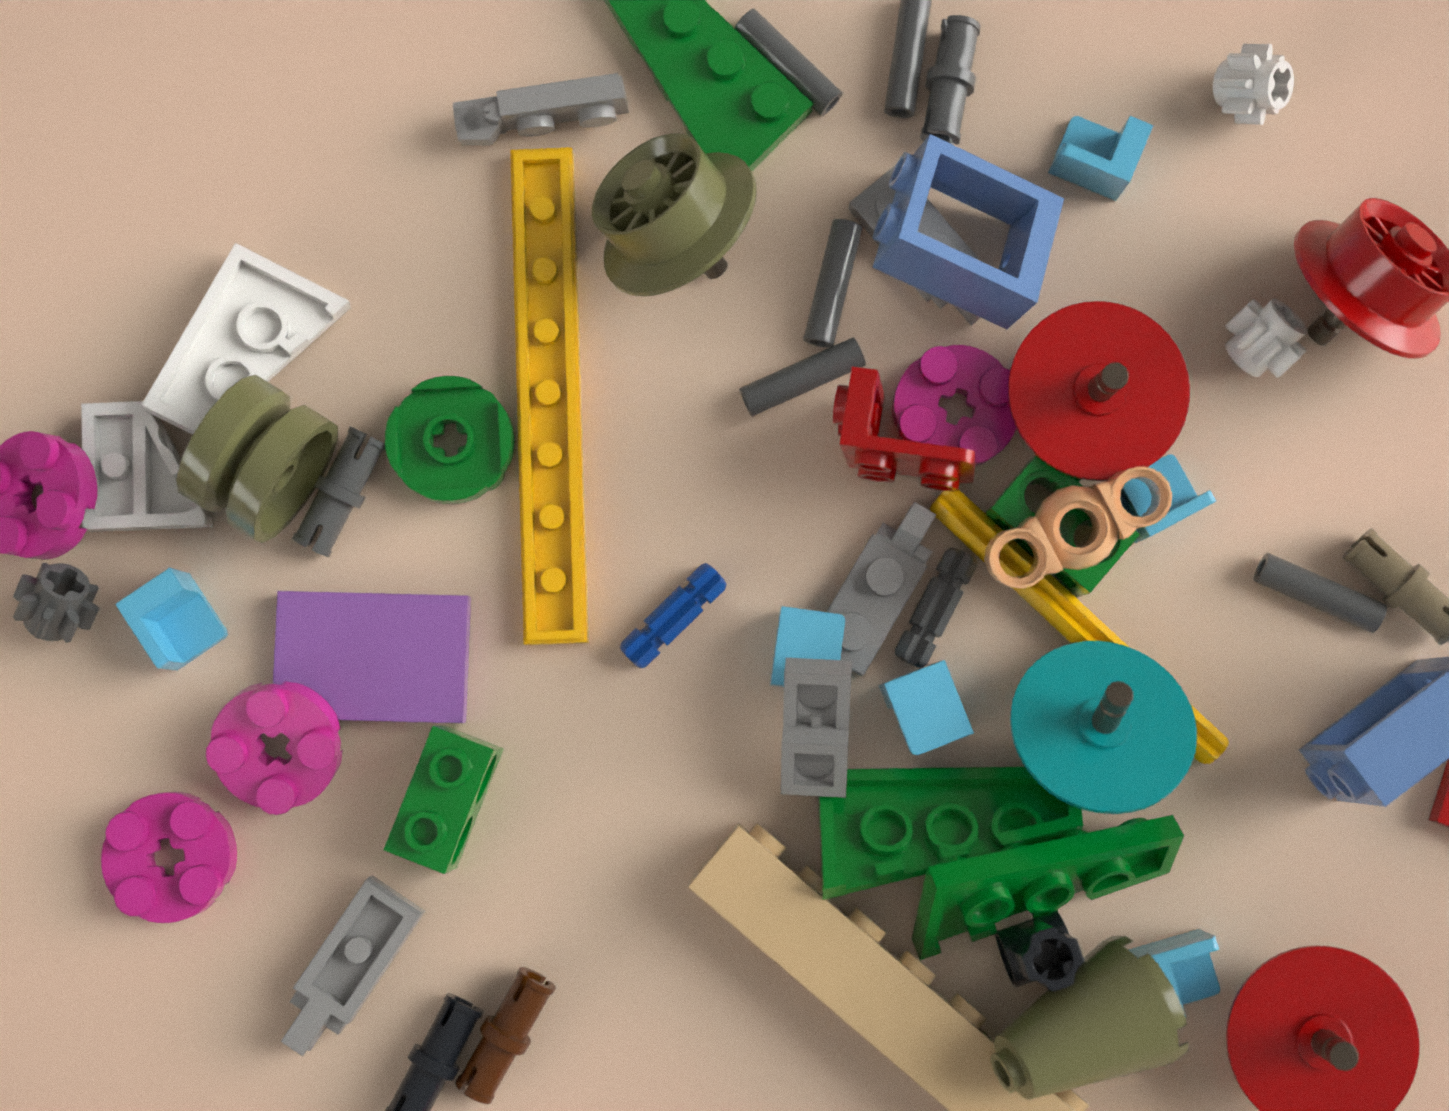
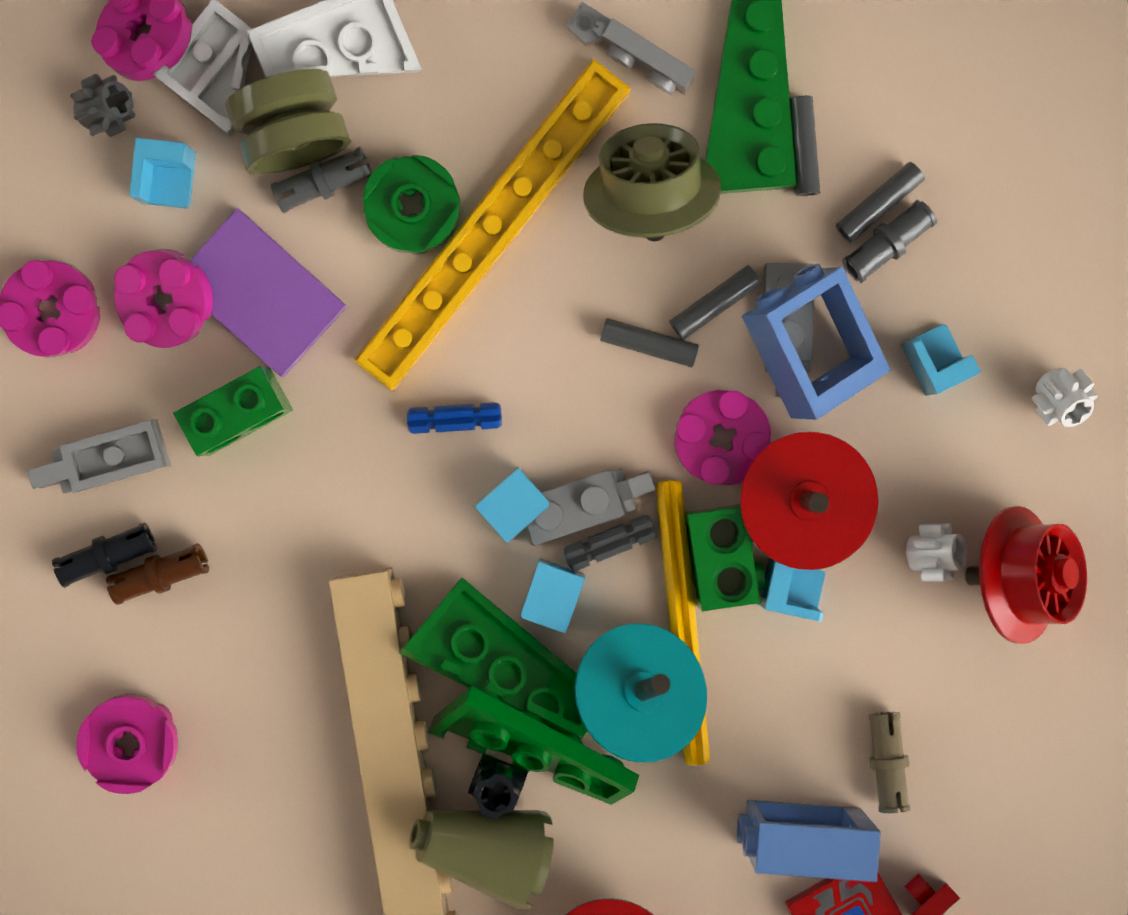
camera: 35 degrees right, 5 degrees up
(815, 727) = (478, 553): light grey slope -> none
(879, 459) = (657, 397): red bracket -> none
(1107, 517) = (746, 579): light nougat piece -> none
(1186, 963) = (571, 861): medium azure panel -> none
(1320, 592) = (837, 723): dark grey piece -> none

